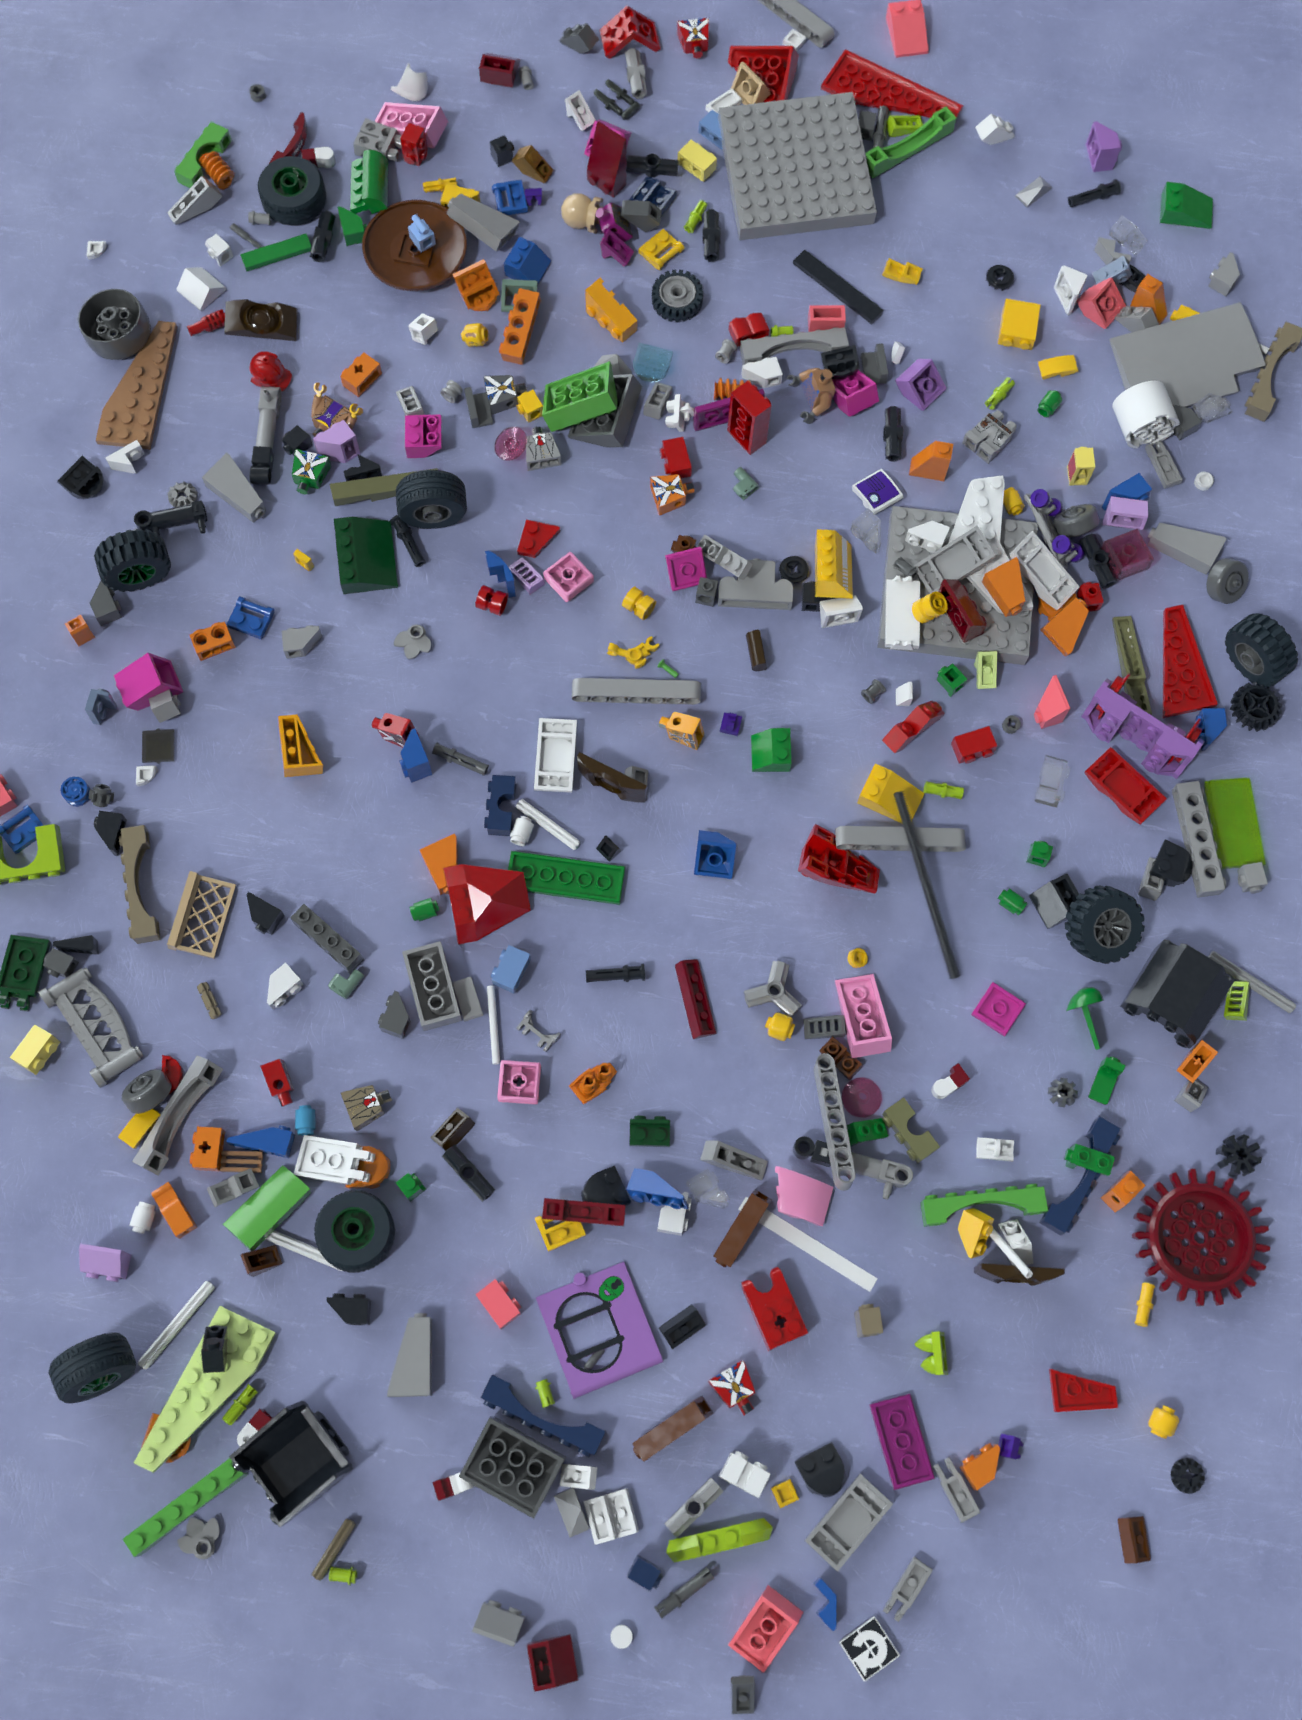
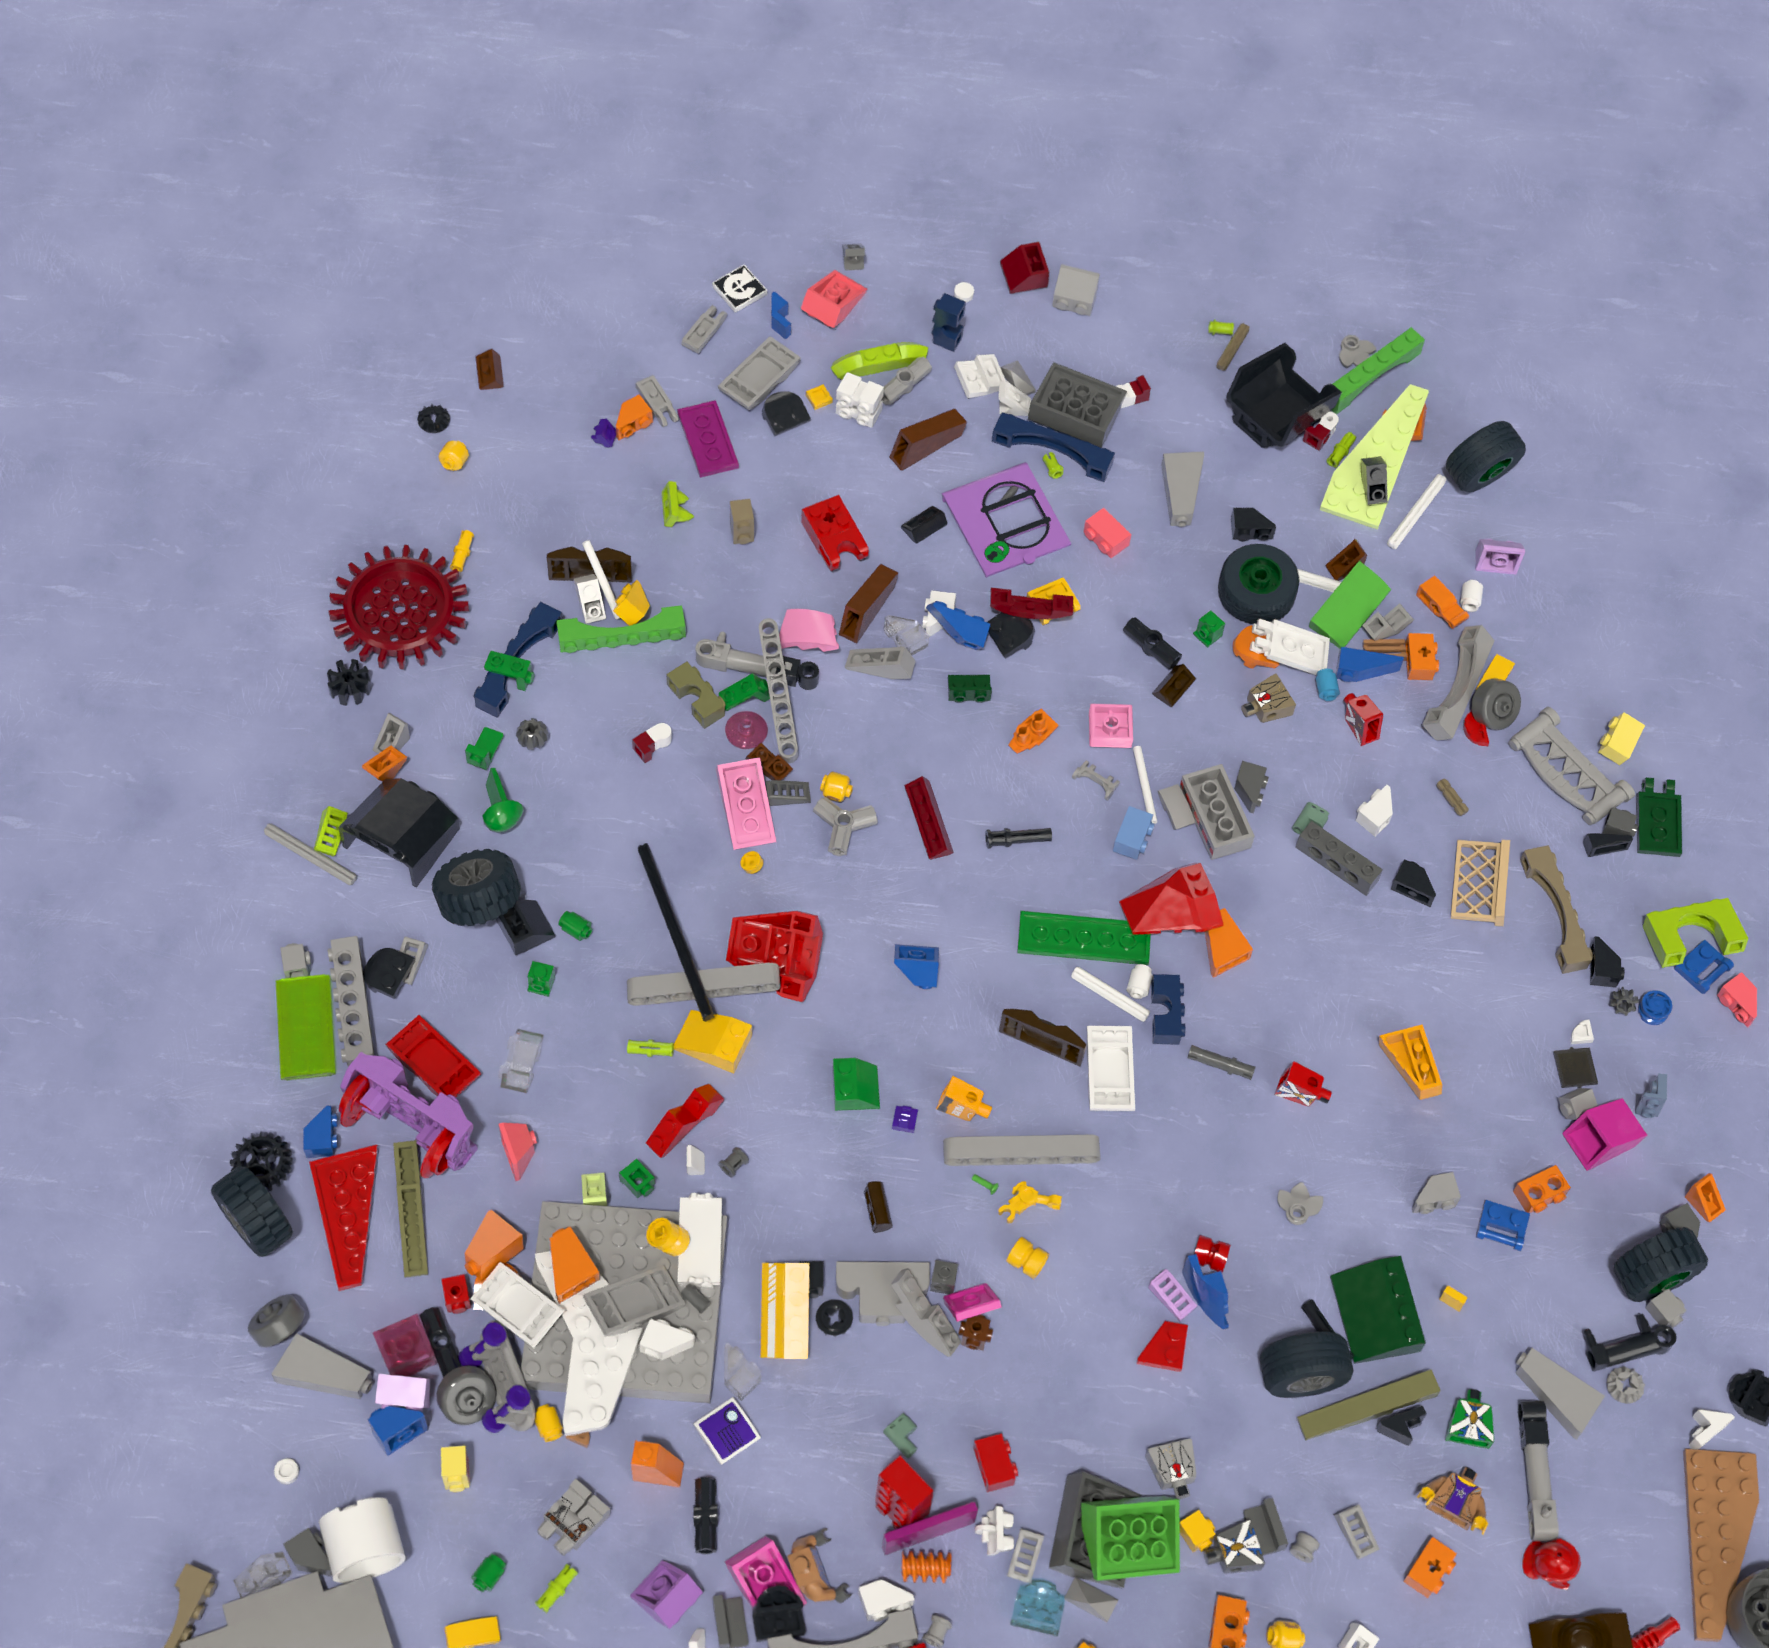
camera: 175 degrees right, 10 degrees down
(296, 439) = (1496, 1462): black brick -> none
(337, 443) = (1440, 1452): lavender slope -> none
(414, 759) = (1272, 1048): blue slope -> none
(422, 435) = (1333, 1476): dark pink slope -> none
(424, 909) = (1237, 894): green brick -> none
(510, 443) = (1222, 1470): clear pink dish -> none
(568, 566) = (1119, 1275): bright pink brick -> none
(608, 848) = (1037, 971): black slope -> none
(638, 774) = (1013, 1051): light grey slope -> none
(669, 492) = (1000, 1413): torso -> none
(683, 1593) = (908, 322): dark grey pin -> none
(734, 1387) = (871, 473): torso -> none
(816, 1249) = (788, 591): white sticker -> none
(840, 611) = (776, 1248): white slope -> none
(962, 610) = (625, 1238): dark red slope -> none
(974, 745) = (612, 1100): red brick -> none
(994, 1149) = (607, 677): white hips -> none
(998, 1009) = (595, 818): dark pink tile -> none
(1010, 730) = (562, 1138): dark grey bush -> none
(1080, 1394) = (533, 477): red wing -> none
(1124, 1190) = (473, 645): orange torso -> none
(1163, 465) = (337, 1482): light grey hinge -> none

